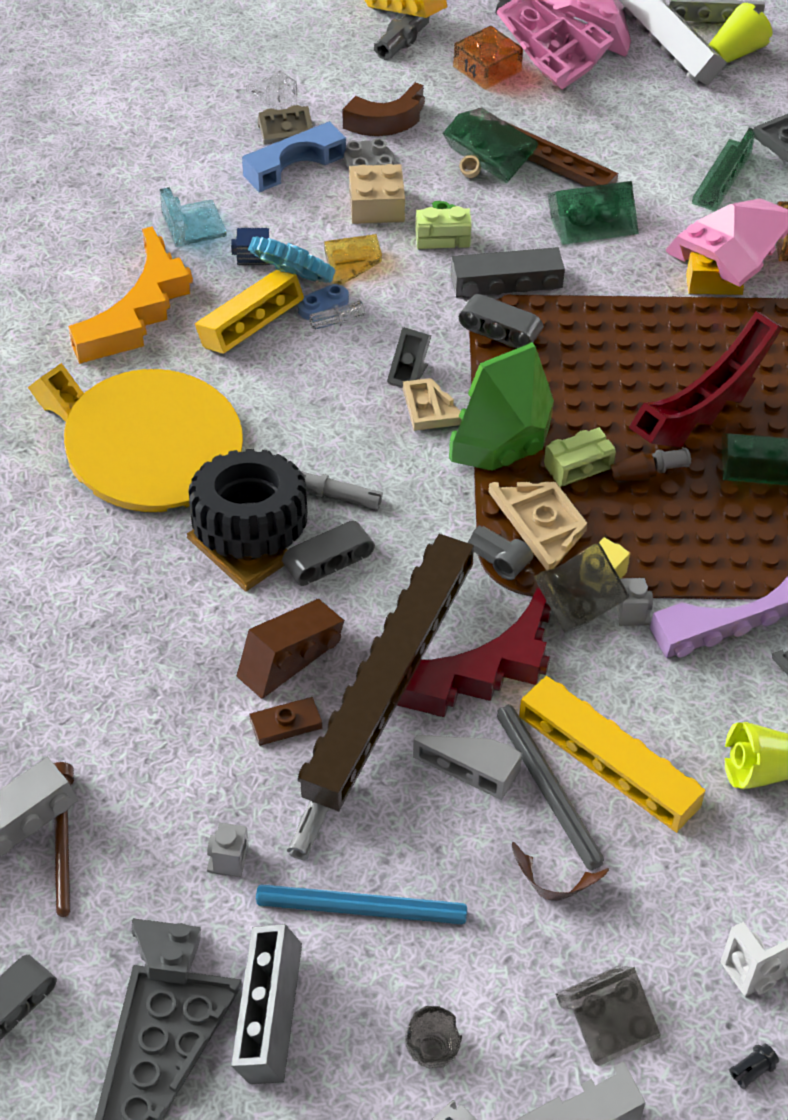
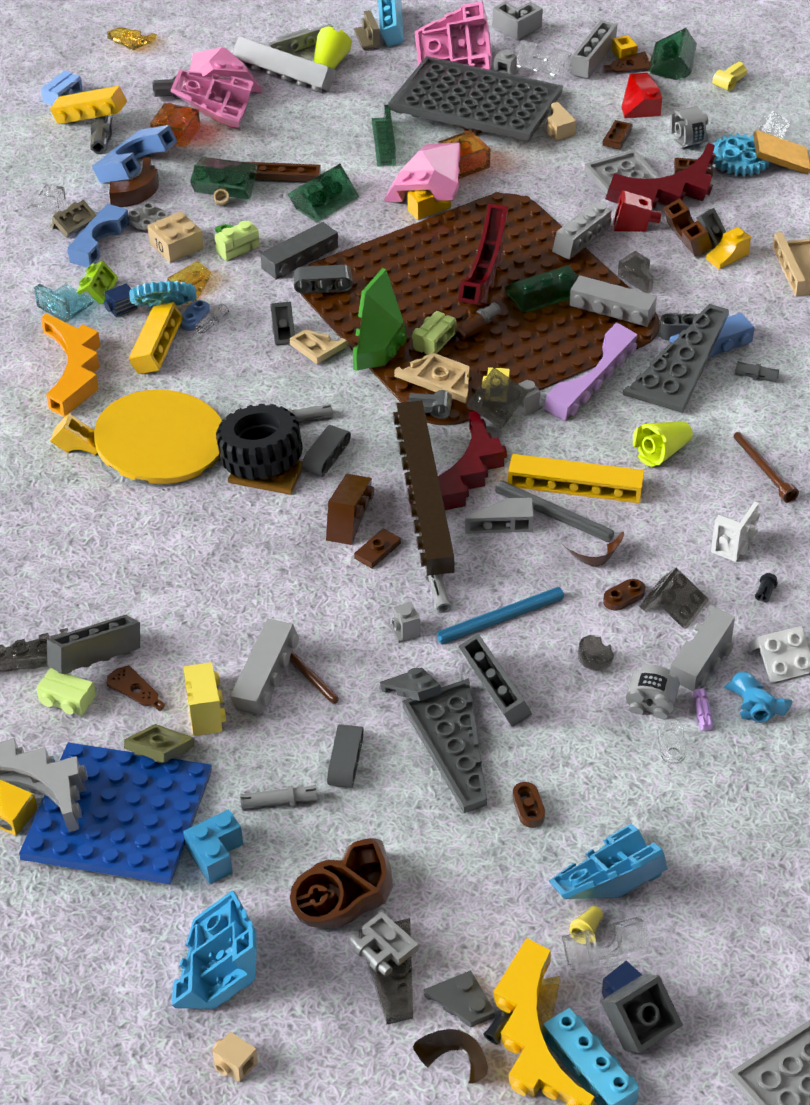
camera: 30 degrees left, 5 degrees down
(249, 211) = (97, 281): none -> lime bracket
(382, 79) = (122, 162): none -> medium blue arch
(549, 964) = (626, 594): none -> reddish brown plate

